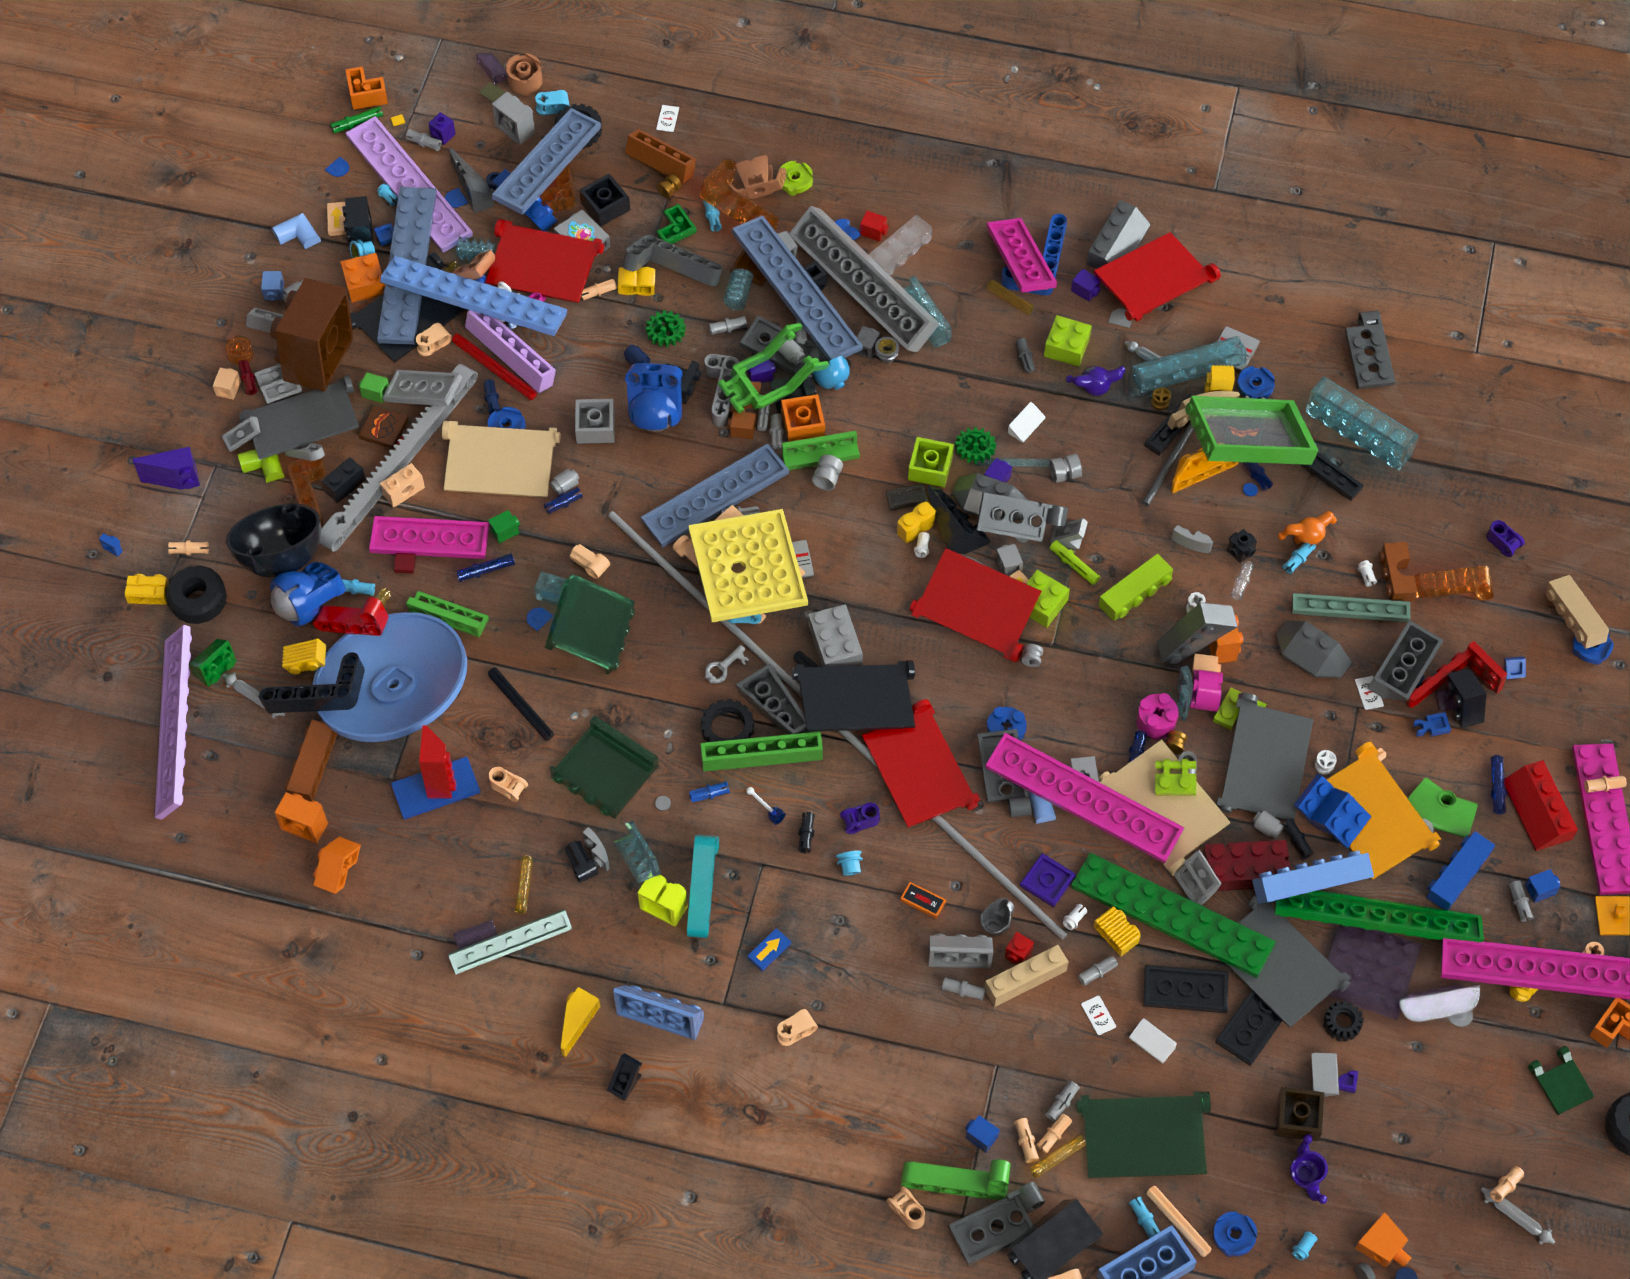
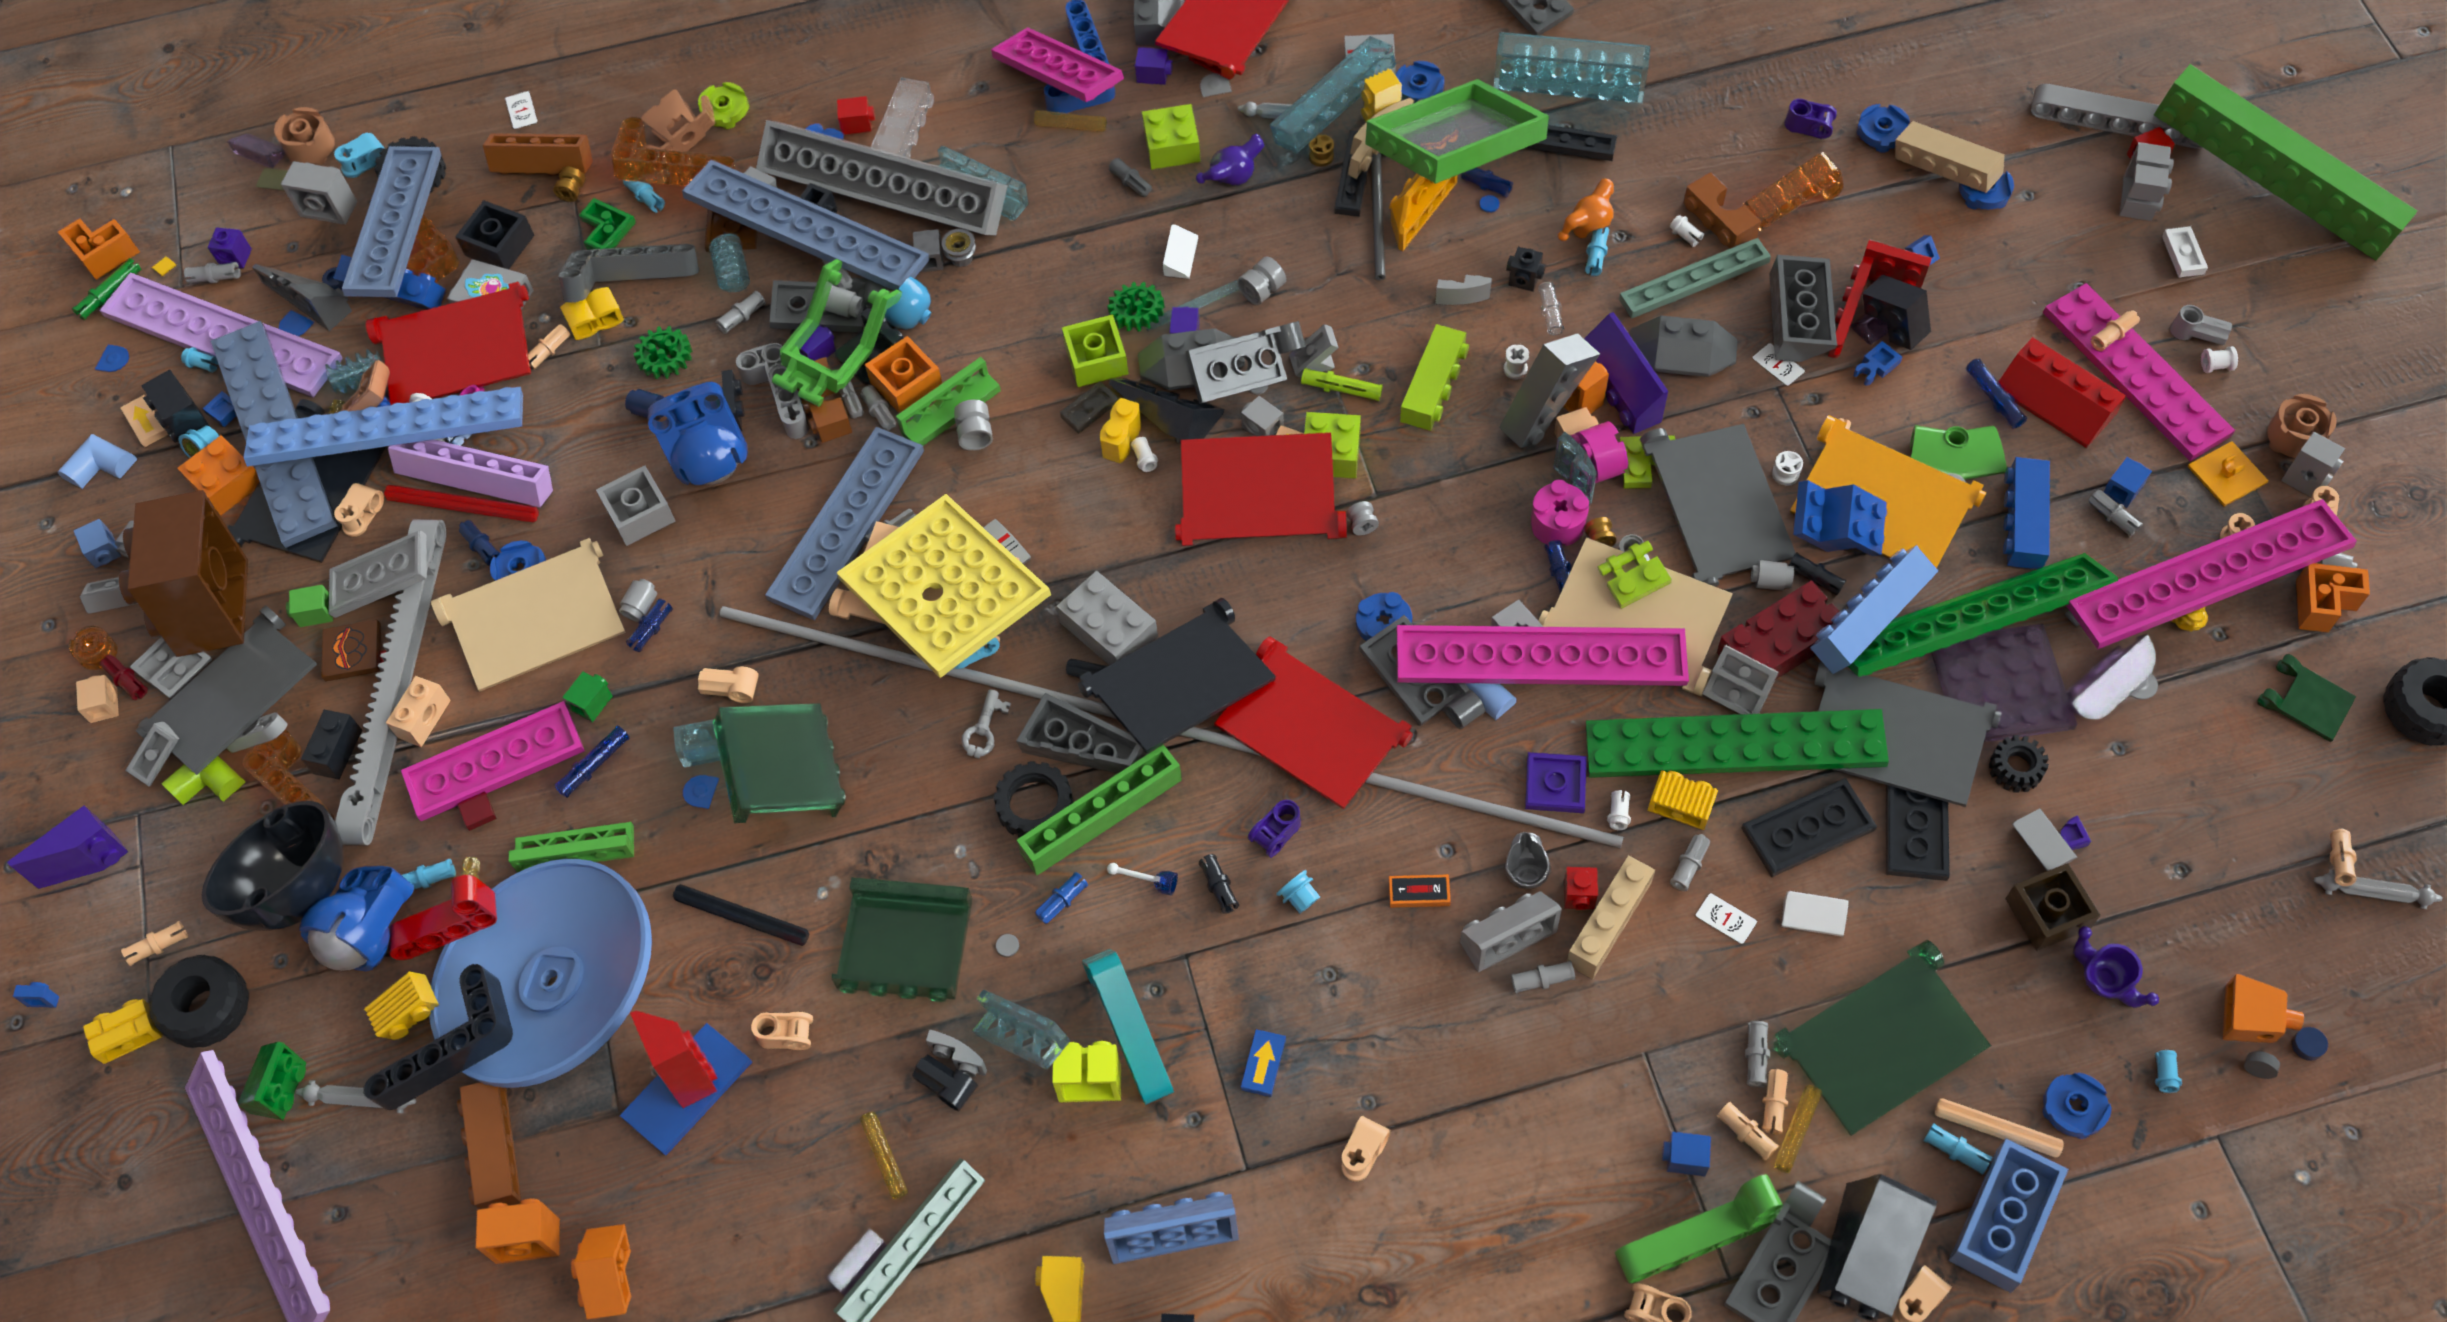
camera: 25 degrees left, 0 degrees up
(1256, 648) = (1631, 379): none -> dark purple slope
(1552, 558) = (1876, 136): none -> blue plate

